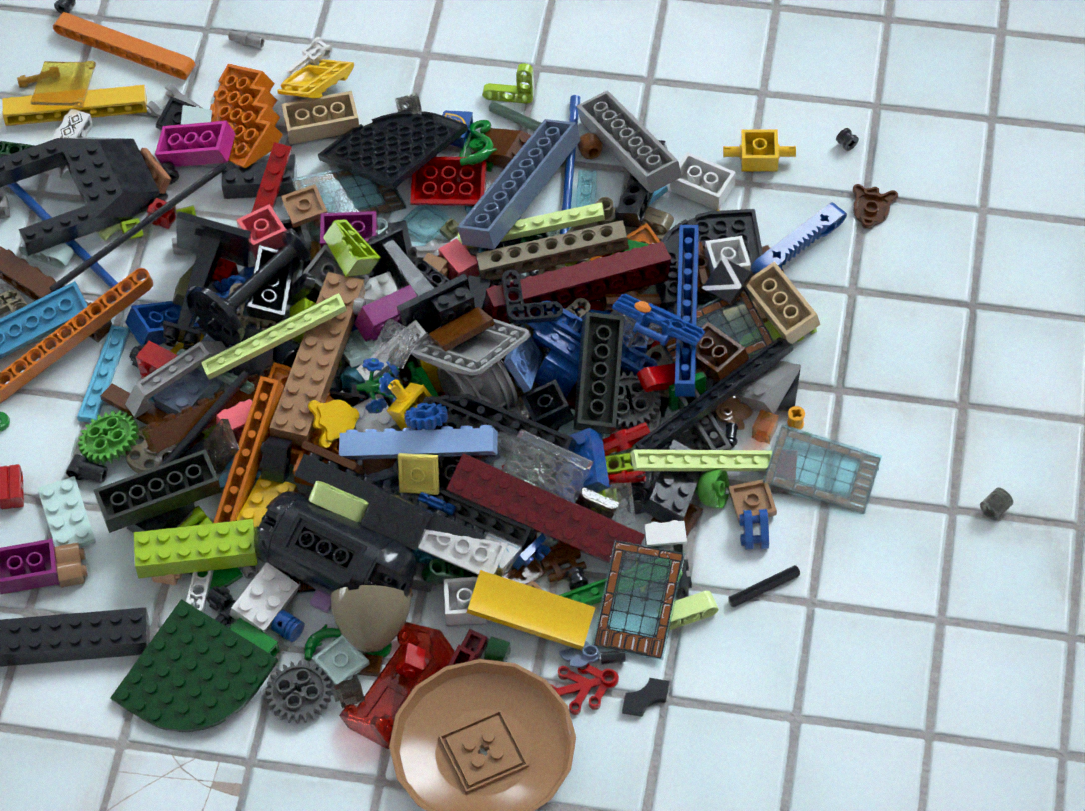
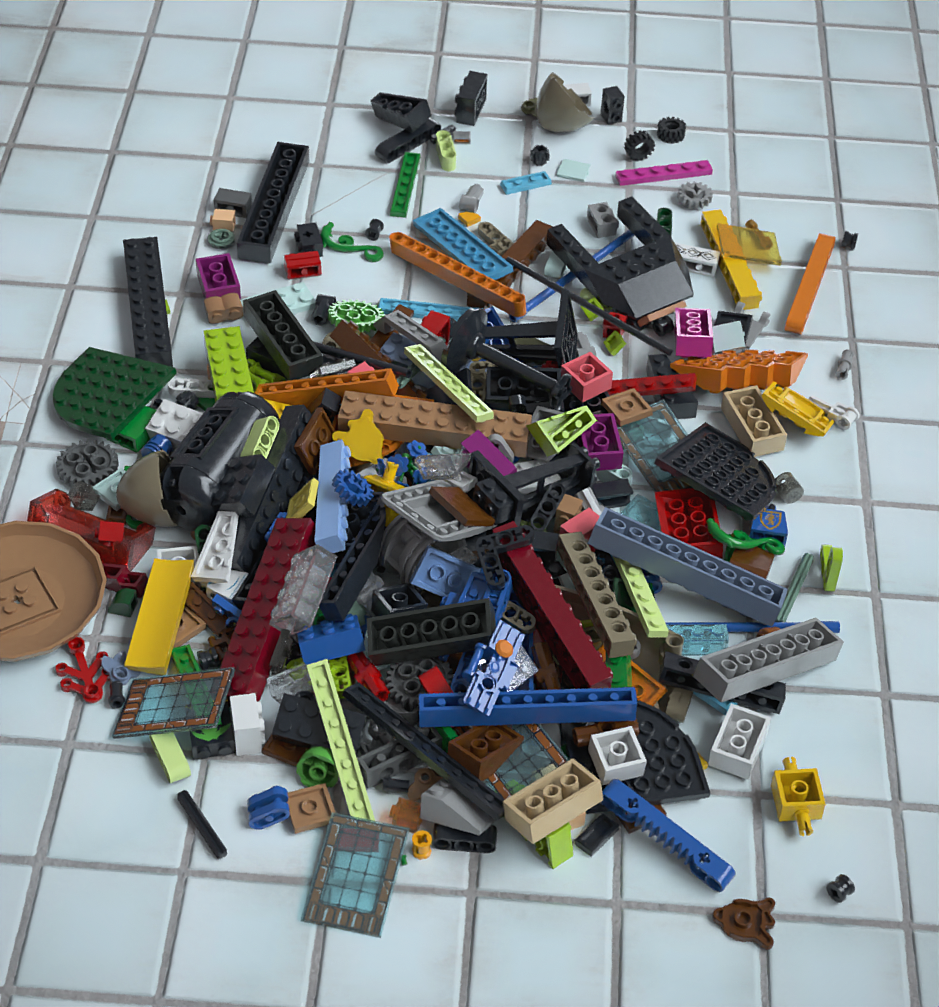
camera: 80 degrees right, 10 degrees down
(637, 702) = (75, 732): black tile -> none
(727, 281) = (573, 745): black tile -> none

